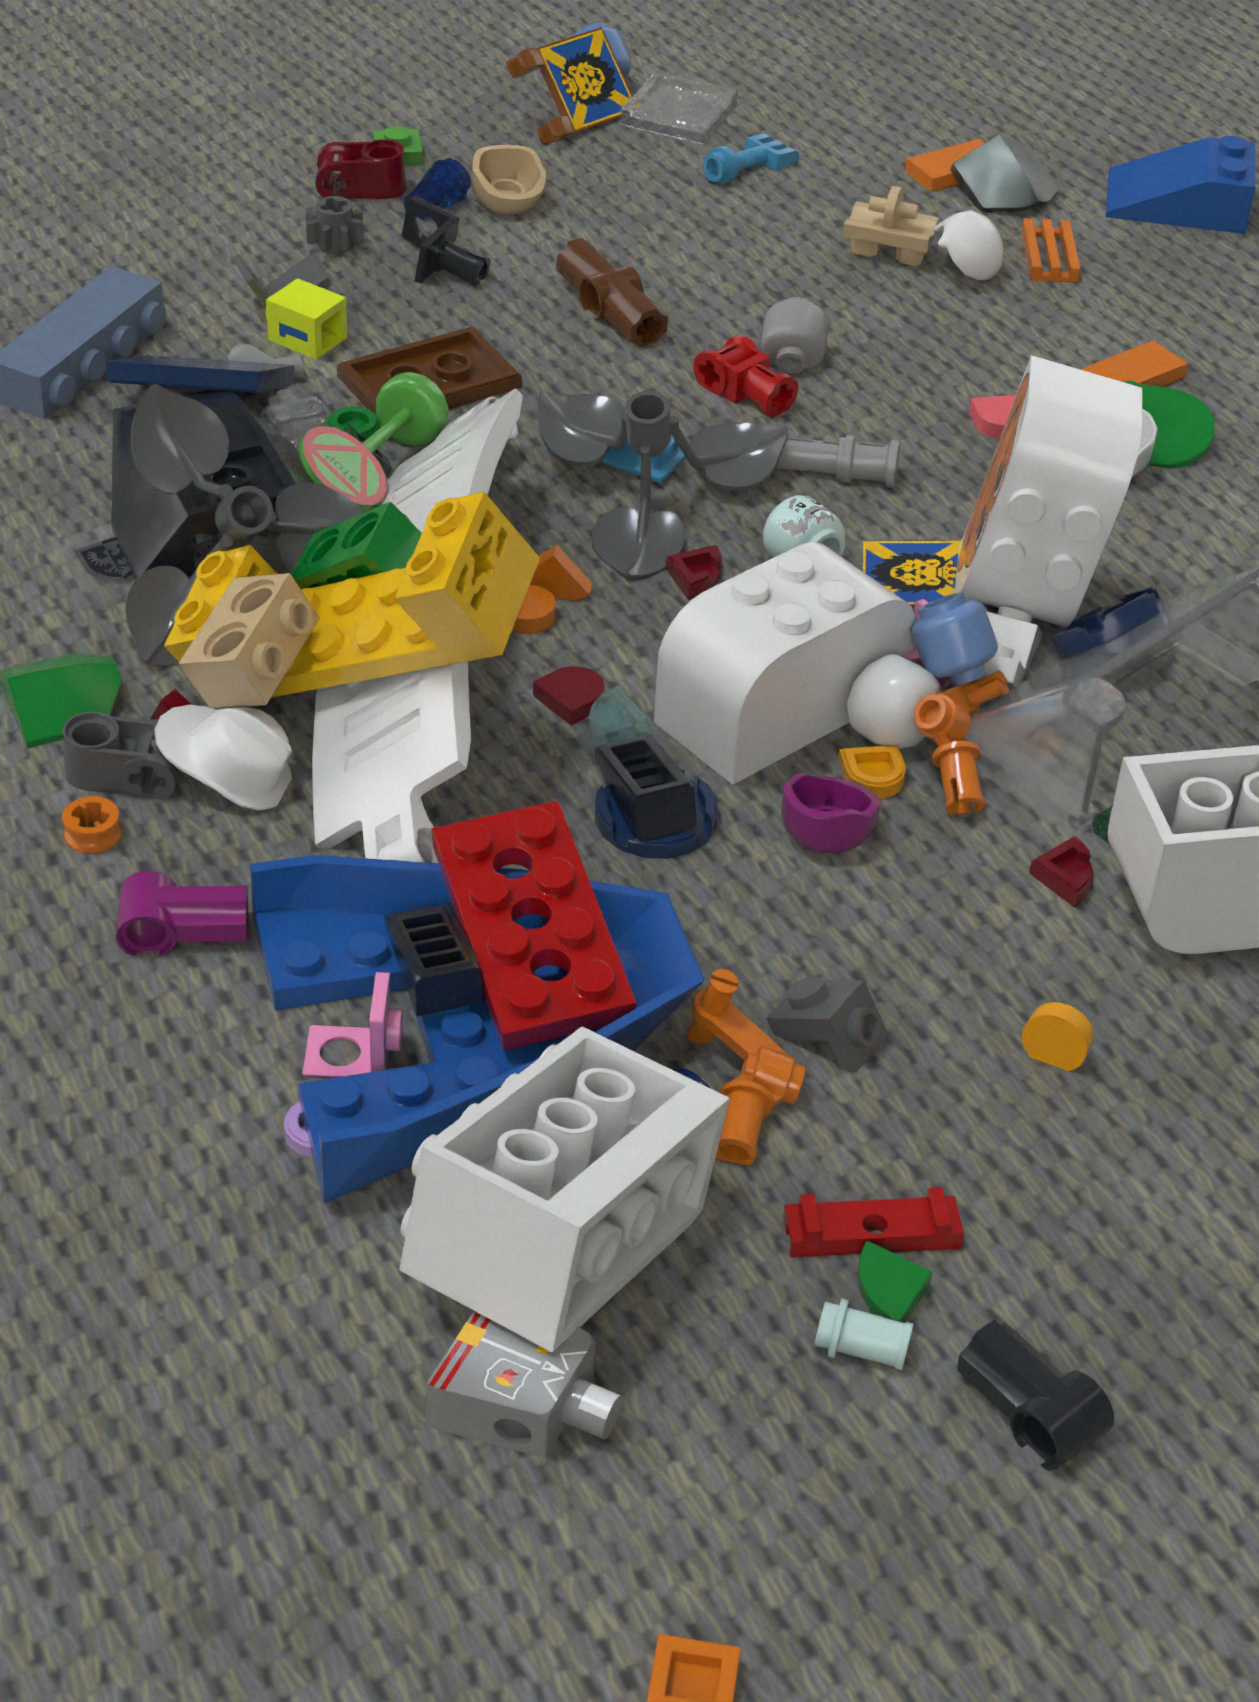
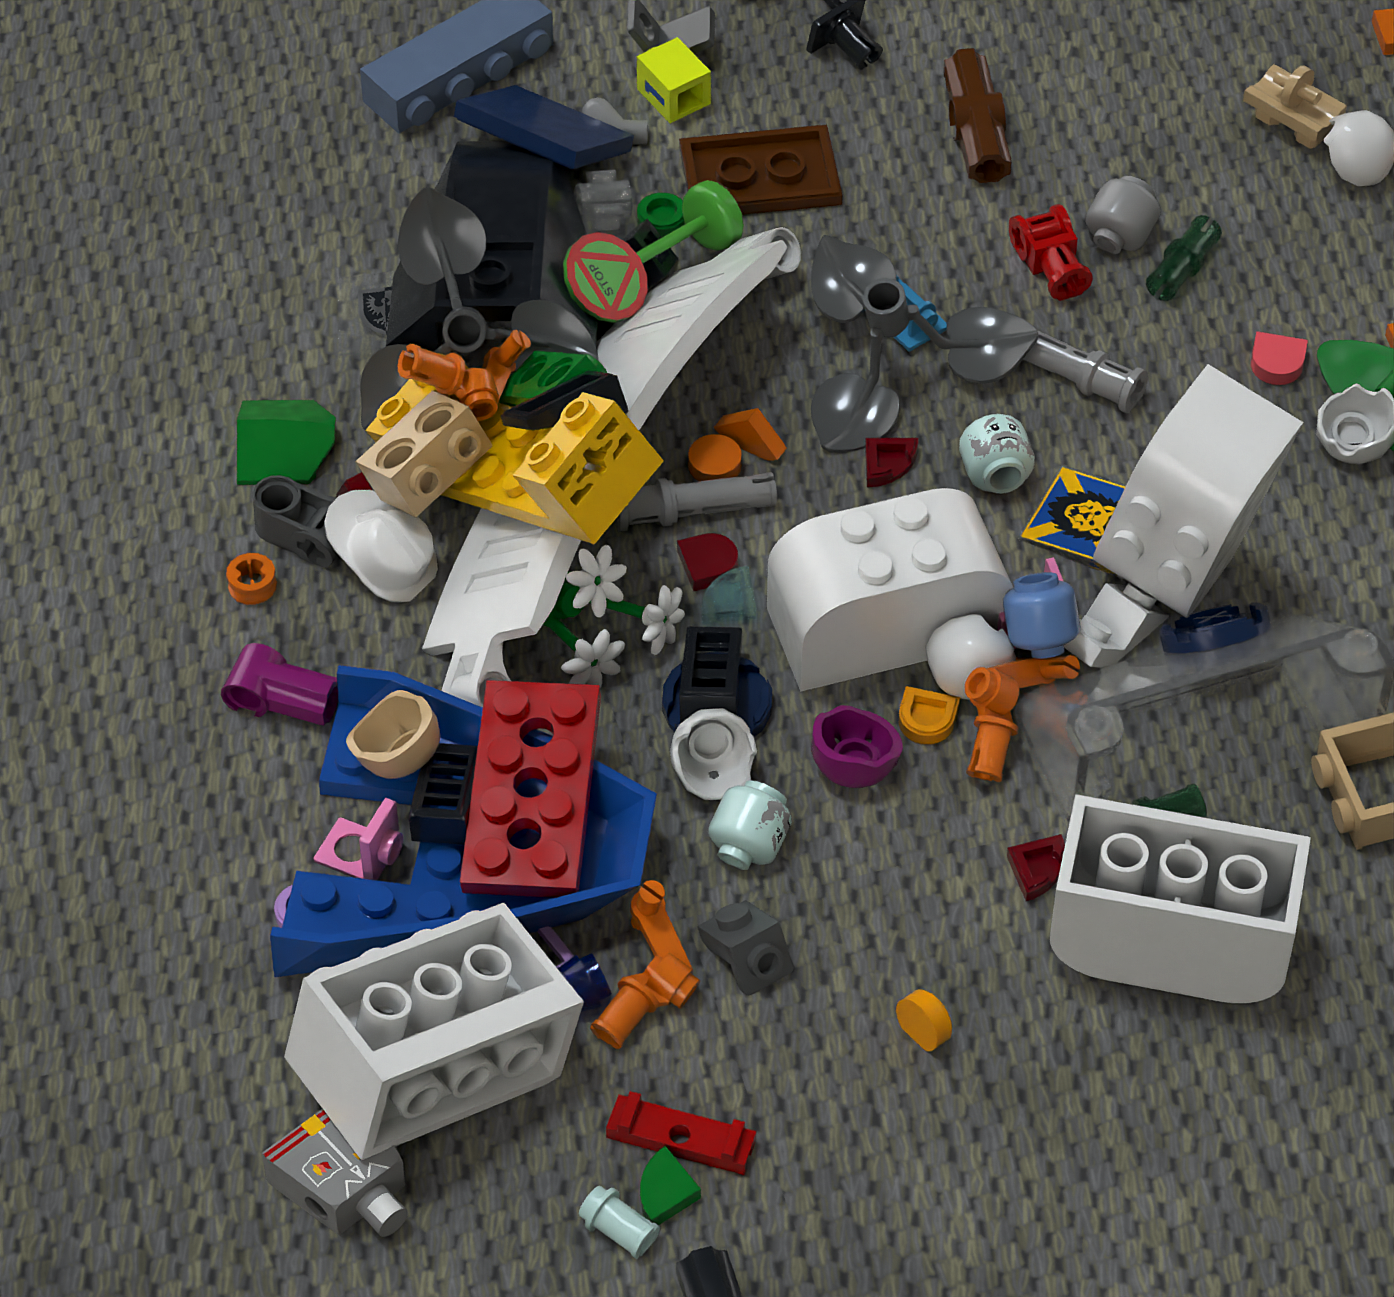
camera: 25 degrees right, 10 degrees up
(251, 554) = (473, 387): none -> orange pin
(355, 910) = (396, 735): none -> tan helmet
(386, 549) = (546, 408): none -> black slope
(497, 719) = (595, 586): none -> white plant
(543, 639) = (669, 501): none -> light grey pin
(695, 842) = (710, 743): none -> white hair
(767, 906) = (750, 824): none -> light aqua head
(867, 359) = (1183, 258): none -> clear green pin

